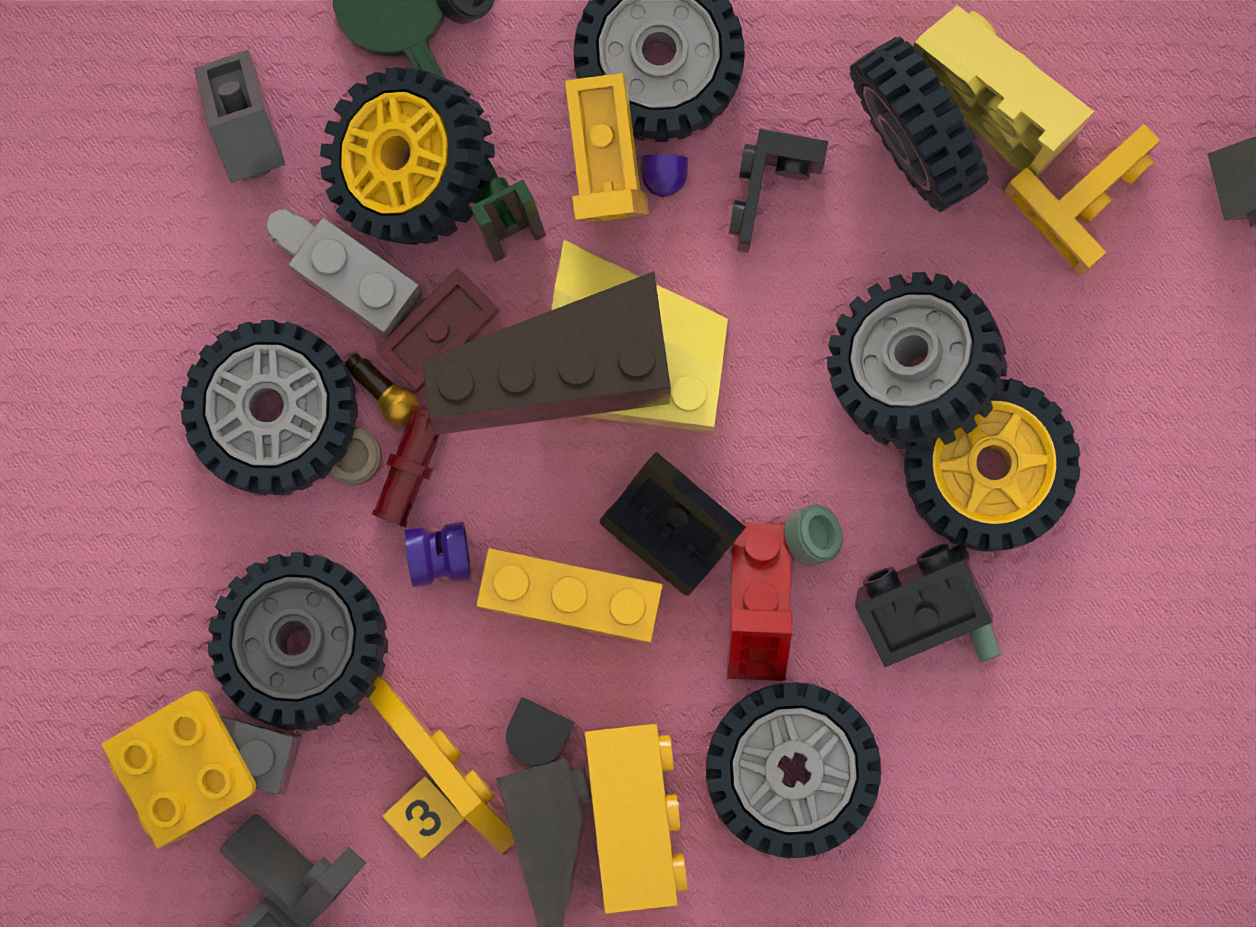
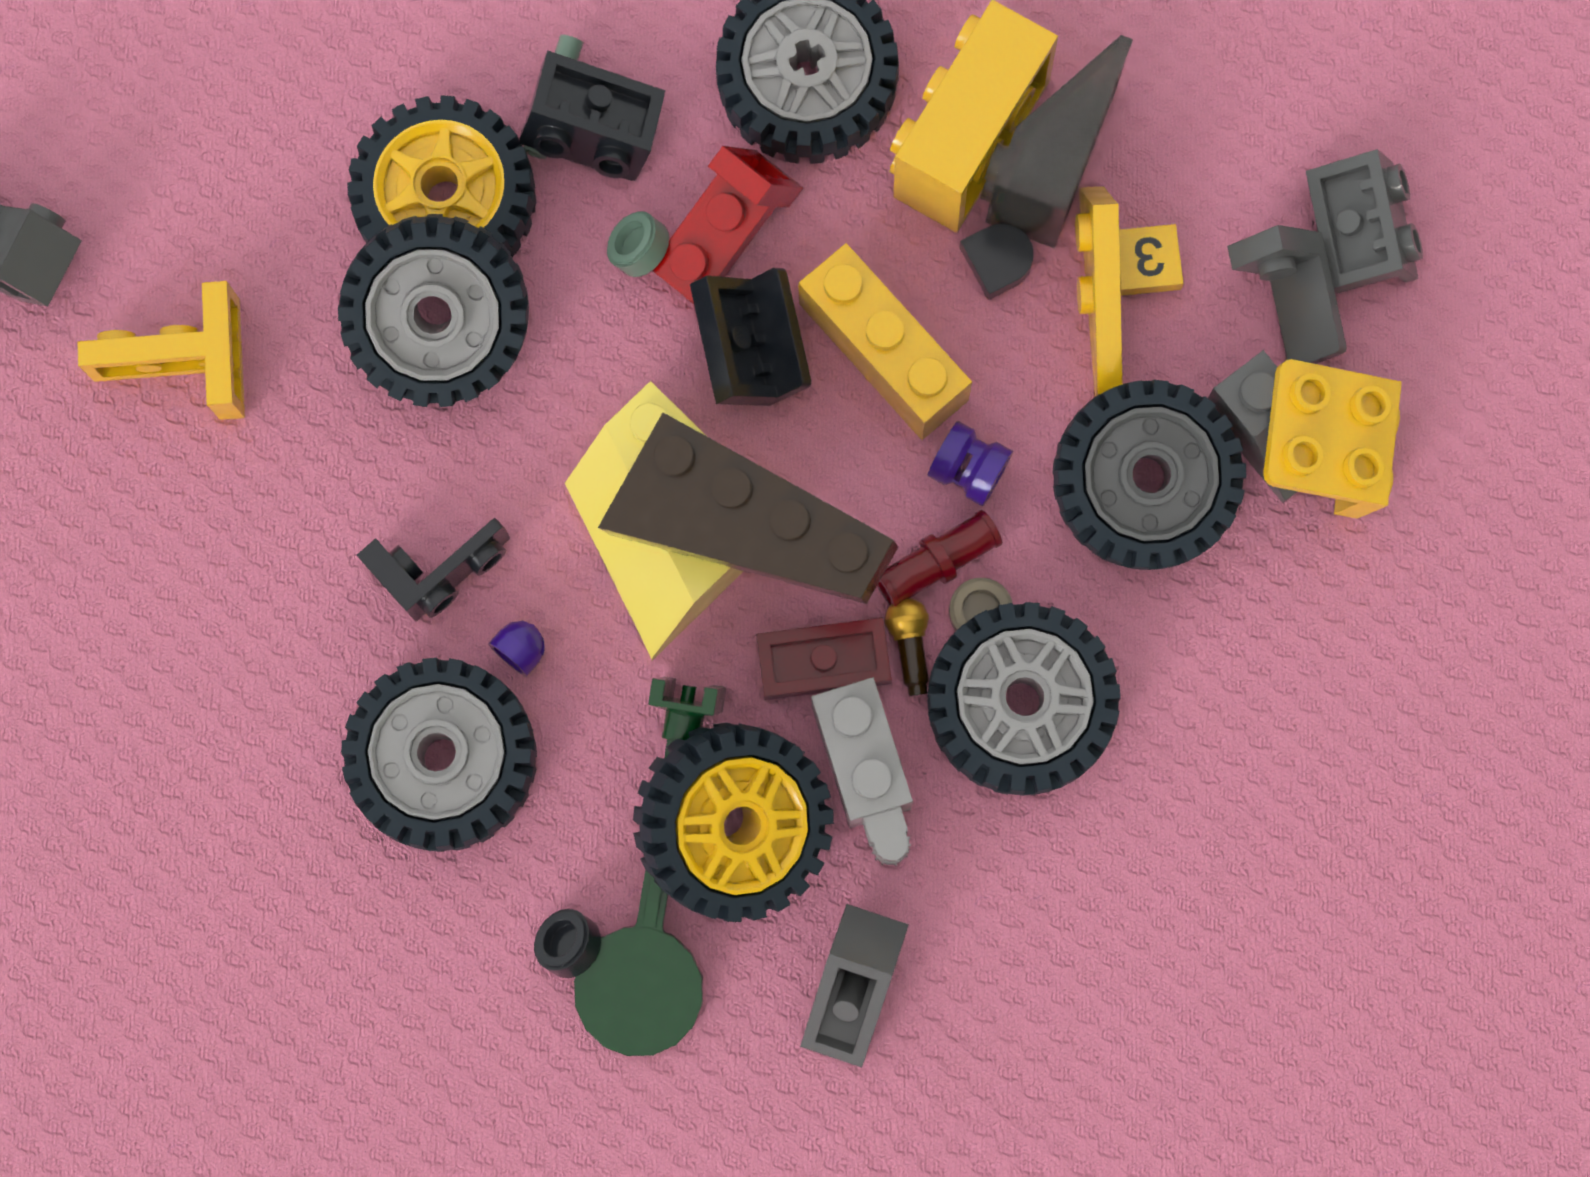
camera: 140 degrees left, 5 degrees down
(604, 150) = (557, 688): yellow bracket -> none
(919, 123) = (266, 501): black wheel -> none
(1001, 91) = (175, 482): light yellow wedge -> none

